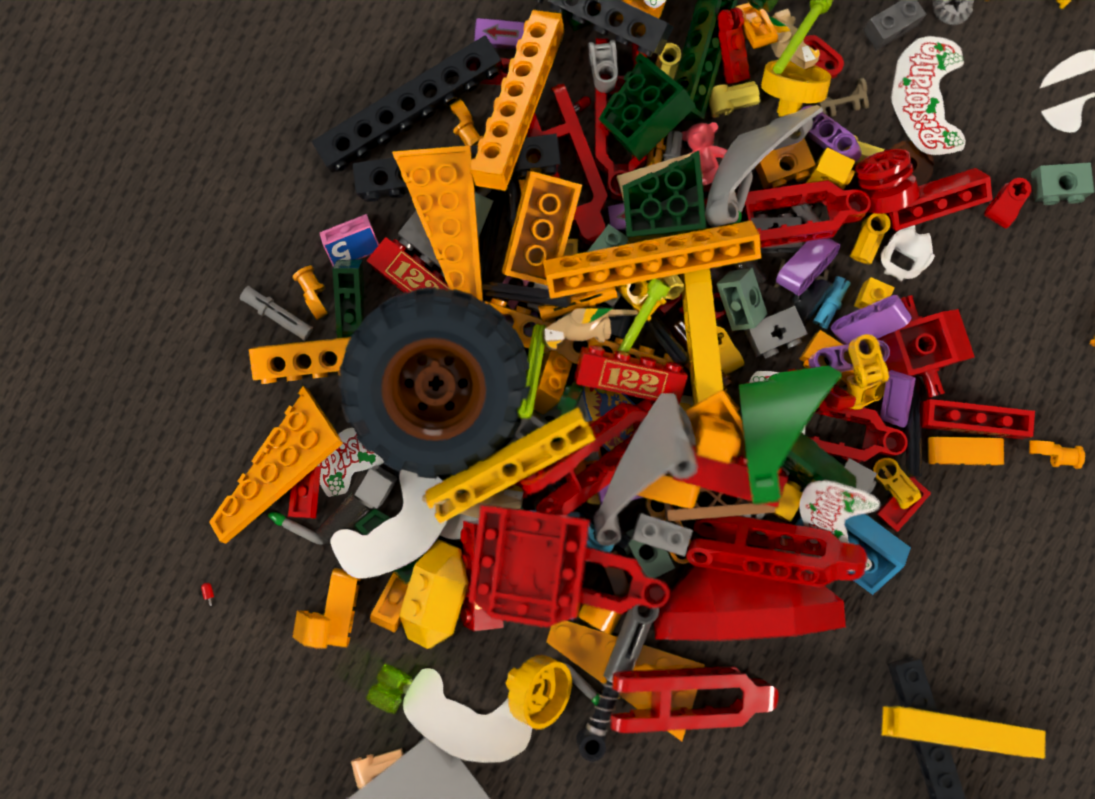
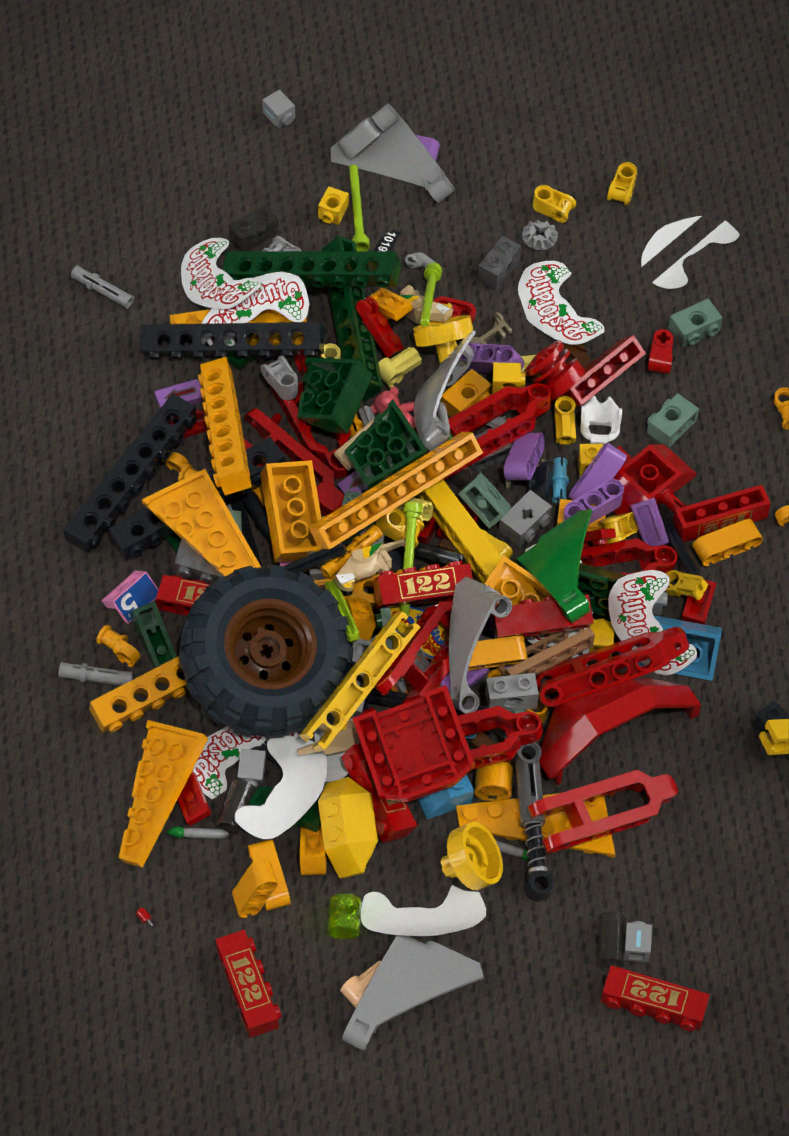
camera: 25 degrees left, 25 degrees down
(267, 714) = (247, 983): none -> red brick
(716, 439) = (517, 585): light orange brick -> none
(867, 363) = (610, 496): yellow piece -> none
(995, 283) = (676, 409): none -> sand green brick

